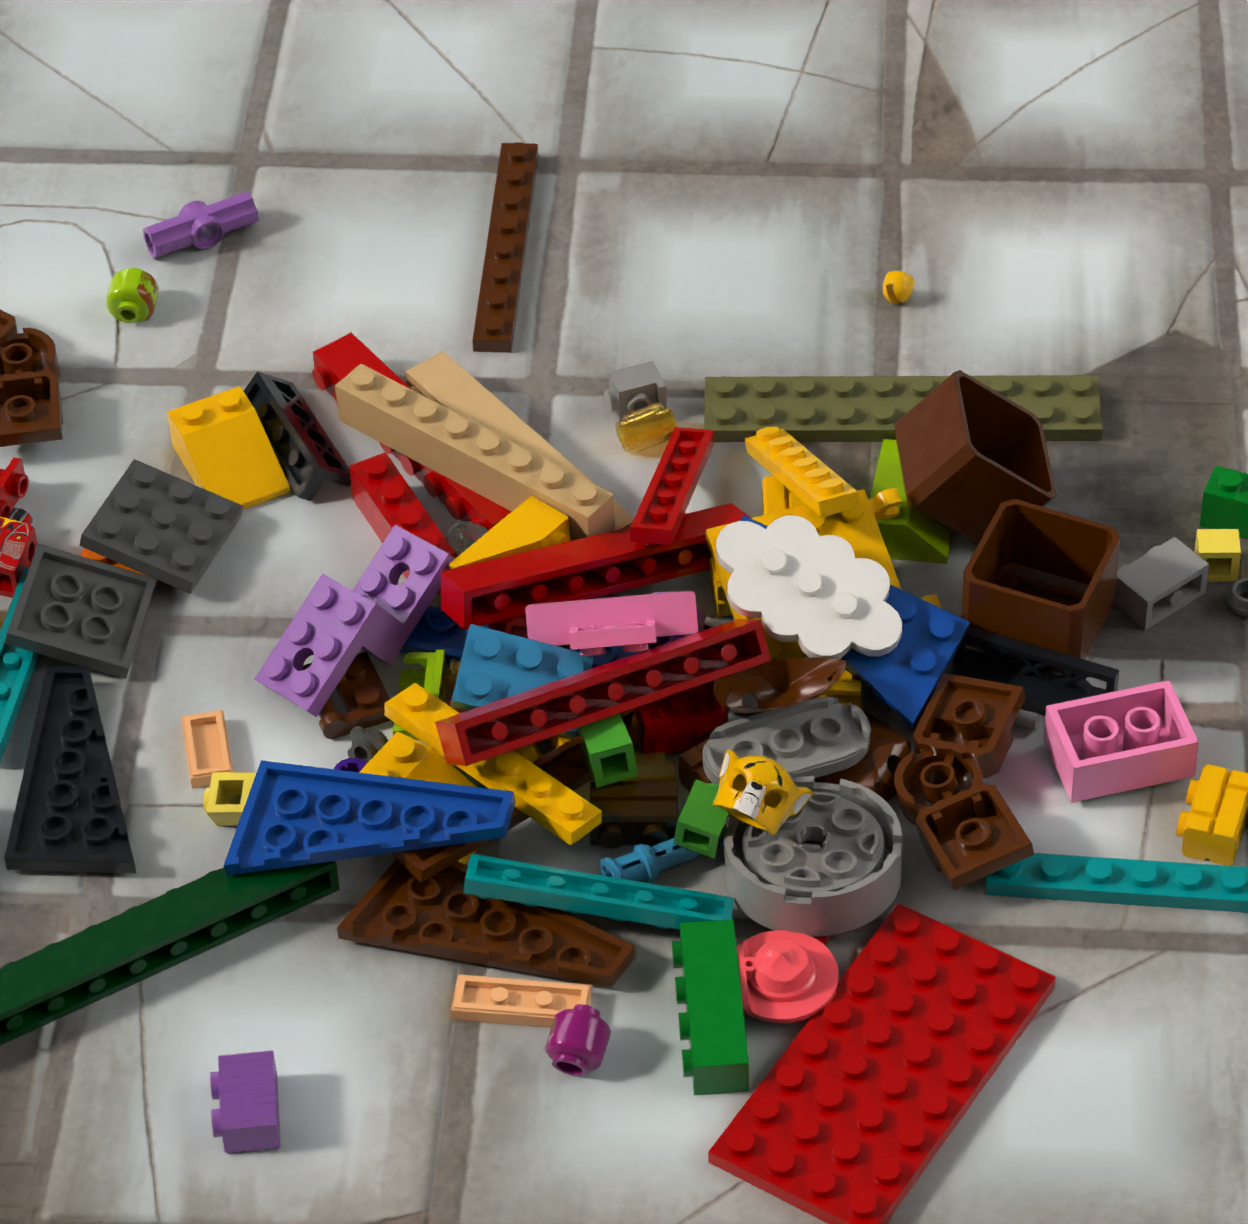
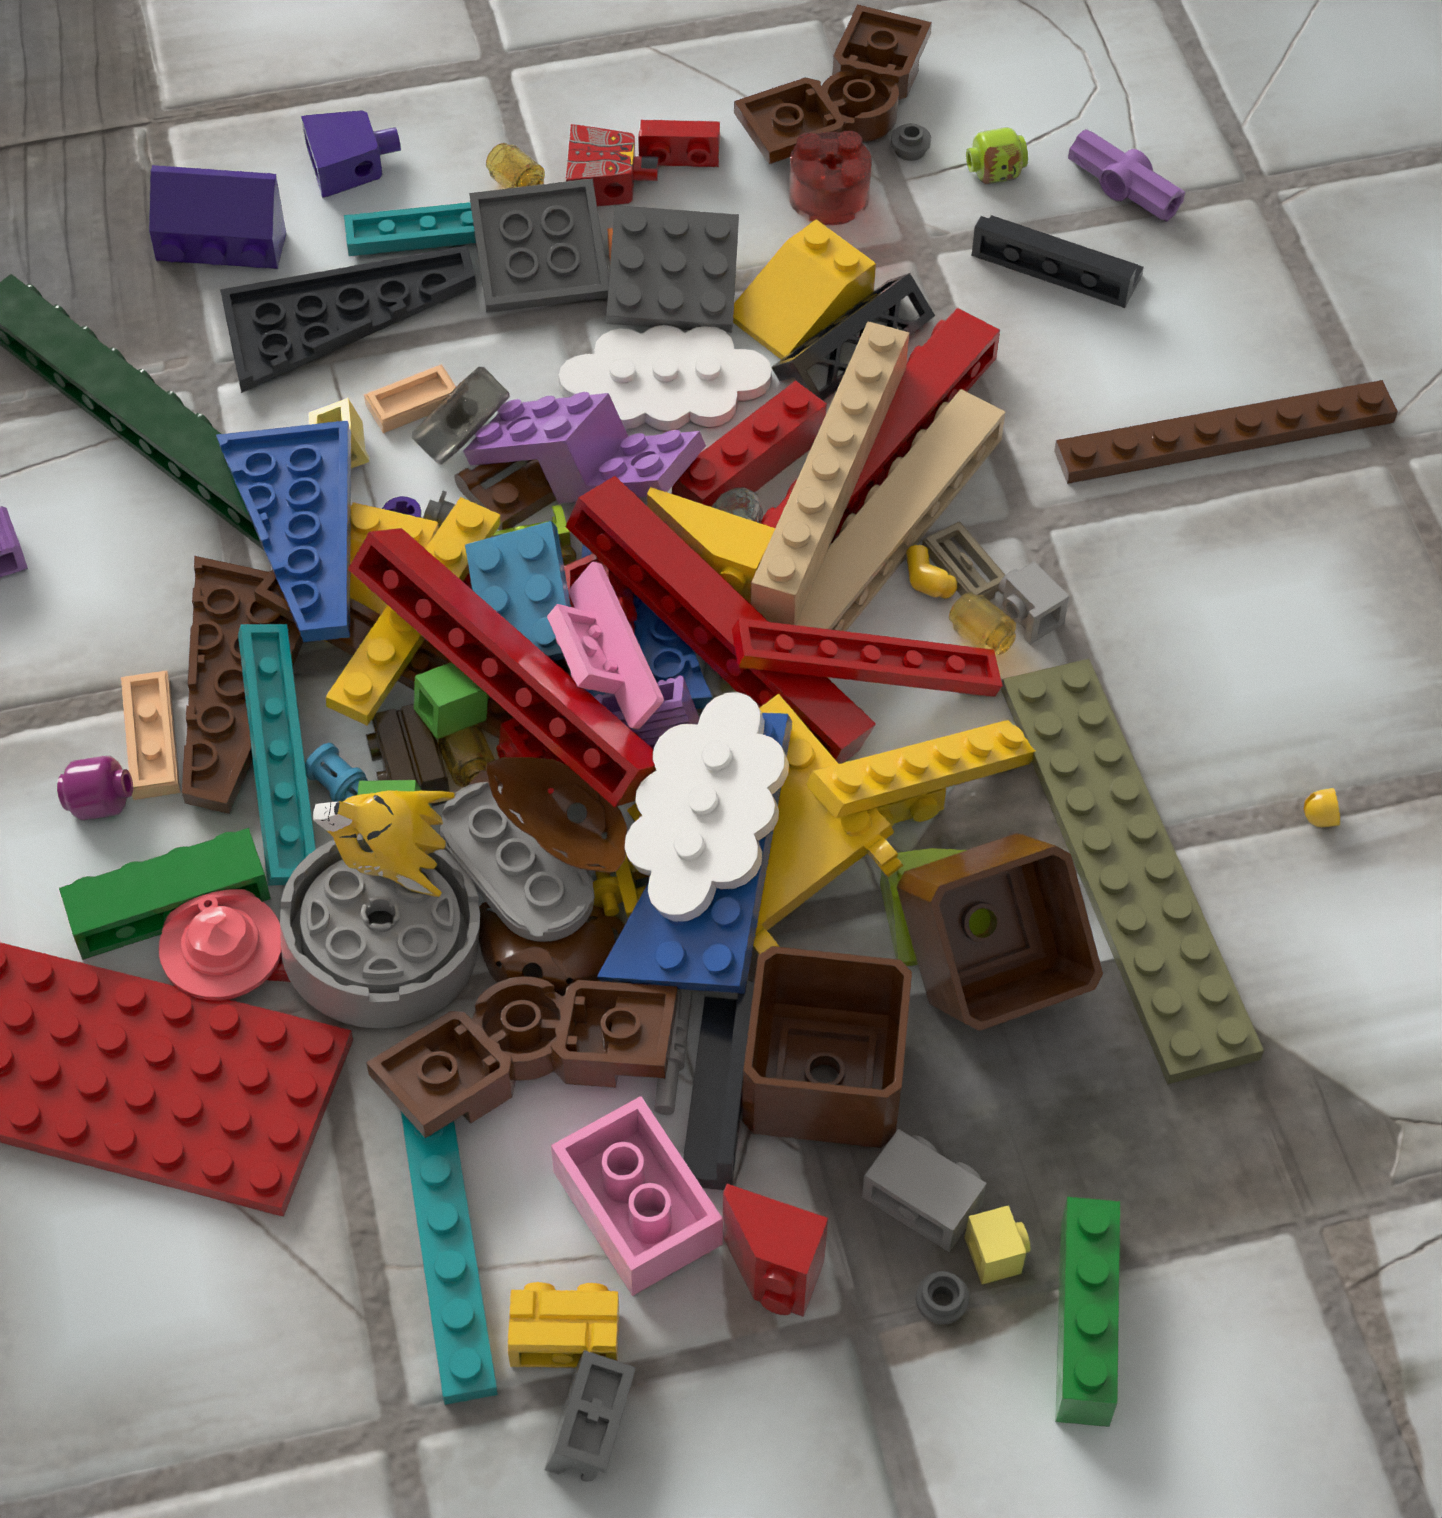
camera: 70 degrees right, 10 degrees up
(78, 349) = (910, 141): none -> dark grey plate
(103, 402) = (830, 176): none -> clear red brick
(266, 704) = (460, 415): none -> clear smoke brick
(270, 293) = (1055, 260): none -> black fence
(270, 568) = (669, 376): none -> white plate
(575, 427) = (949, 557): none -> dark tan tile
(582, 449) = (926, 577): none -> yellow arm
(1201, 661) = (774, 1248): none -> red slope

